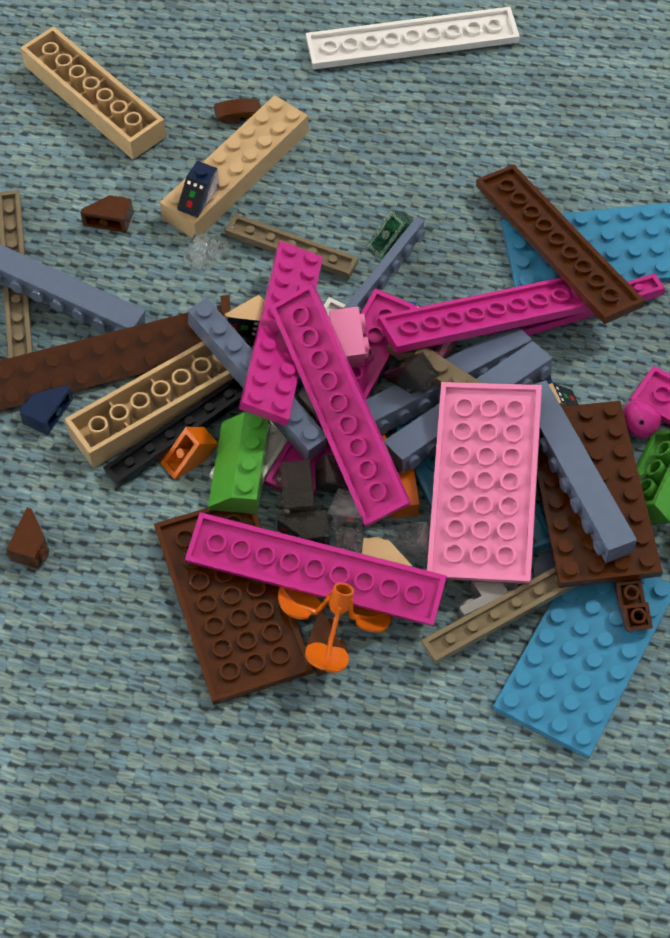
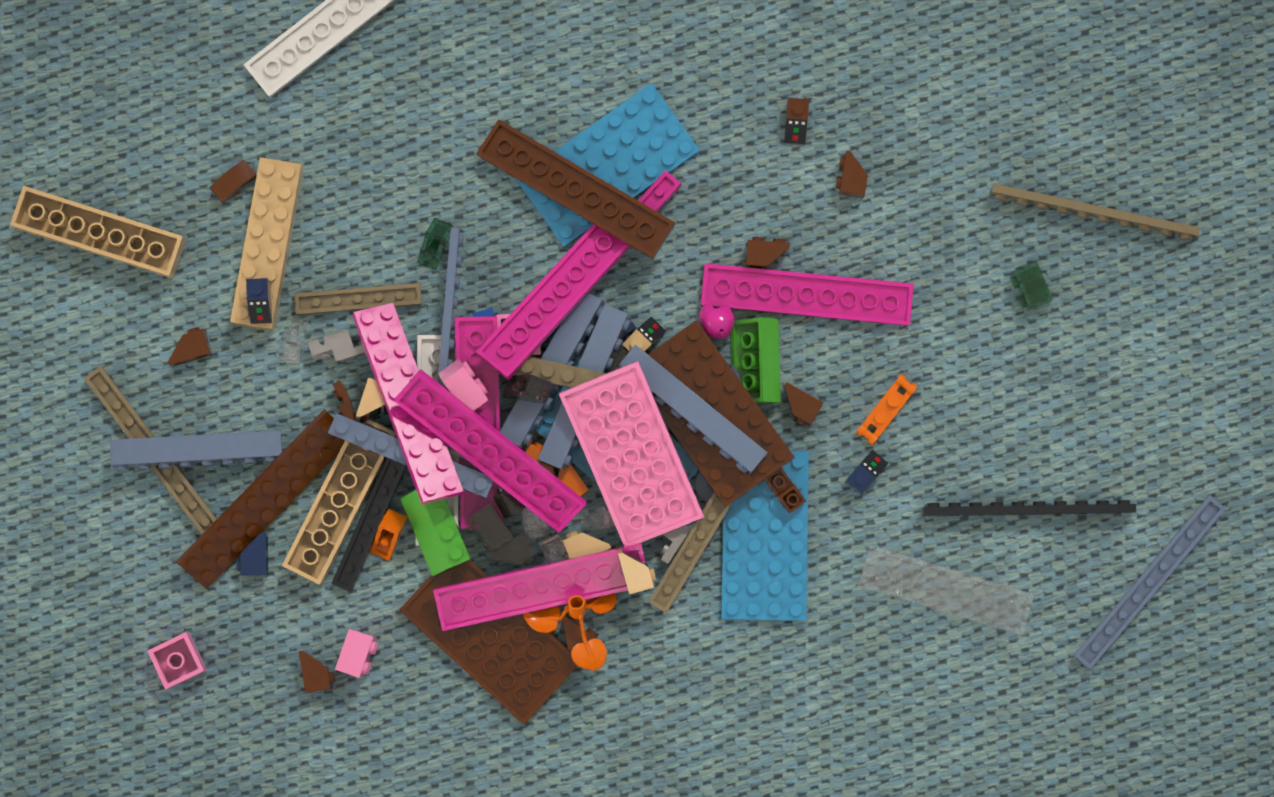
camera: 25 degrees left, 25 degrees up
(83, 538) = (357, 653): none -> bright pink brick
(247, 272) = (337, 344): none -> light grey plate
(425, 598) = (636, 572): none -> tan slope

